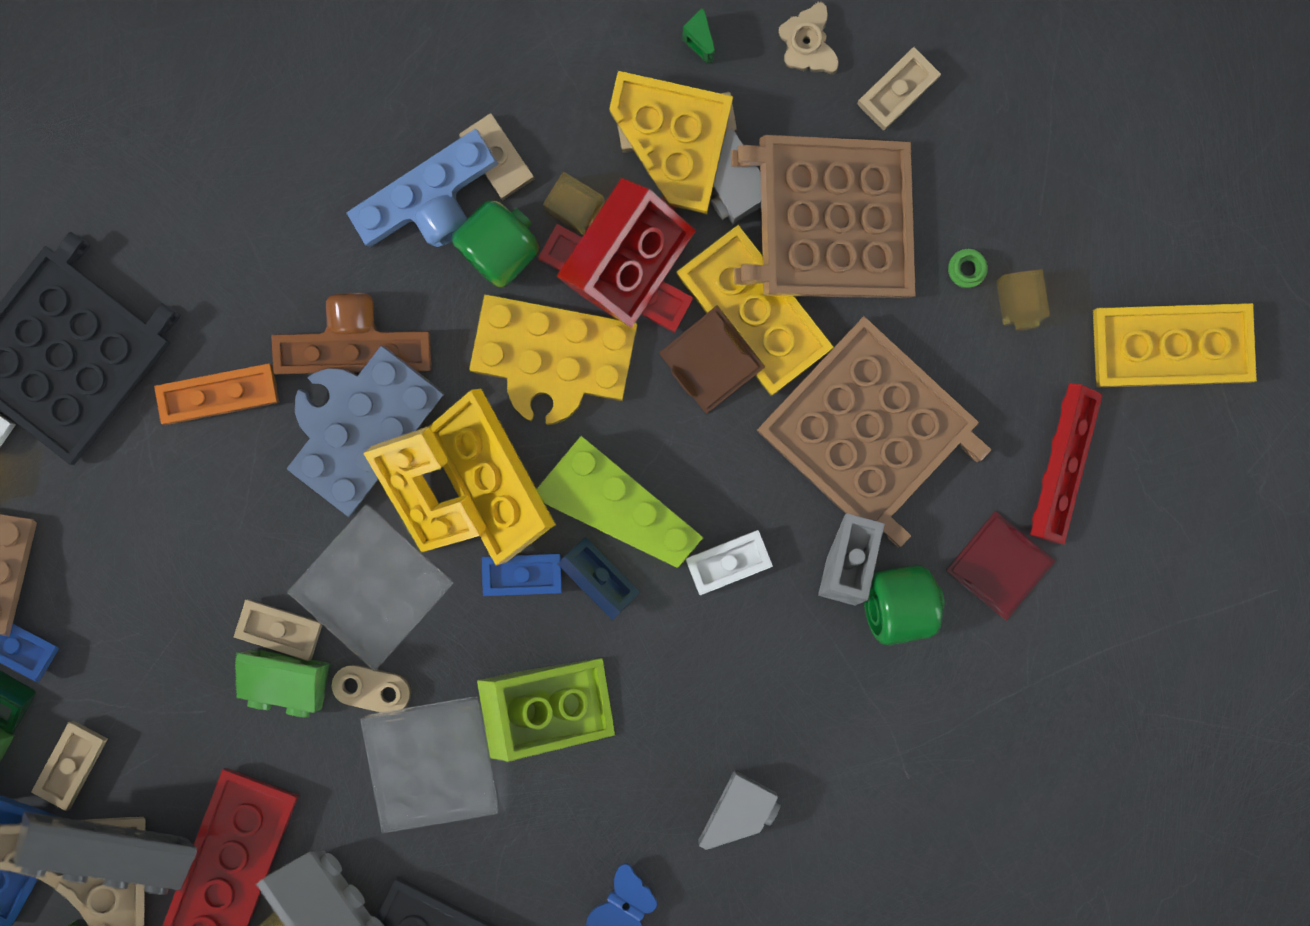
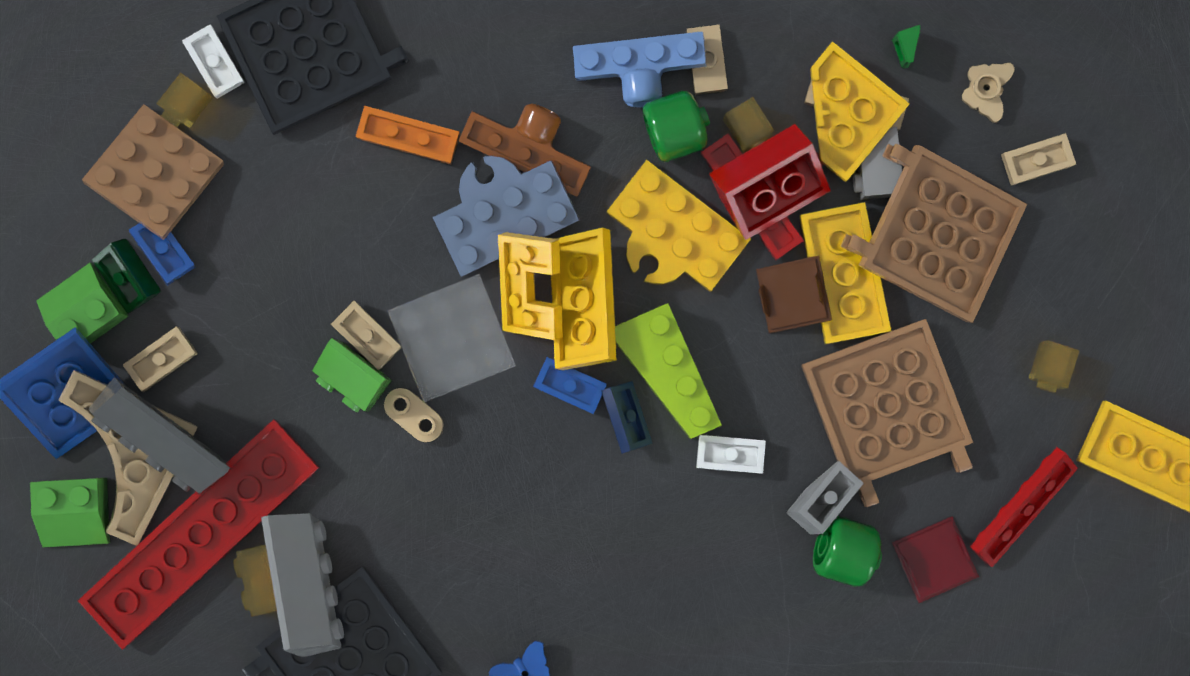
camera: 25 degrees right, 0 degrees up
(429, 764) = (430, 493): clear plate -> none
(545, 709) = (538, 495): lime slope -> none
(739, 812) = (645, 646): light grey slope -> none
(978, 262) = (1031, 316): bright green plate -> none

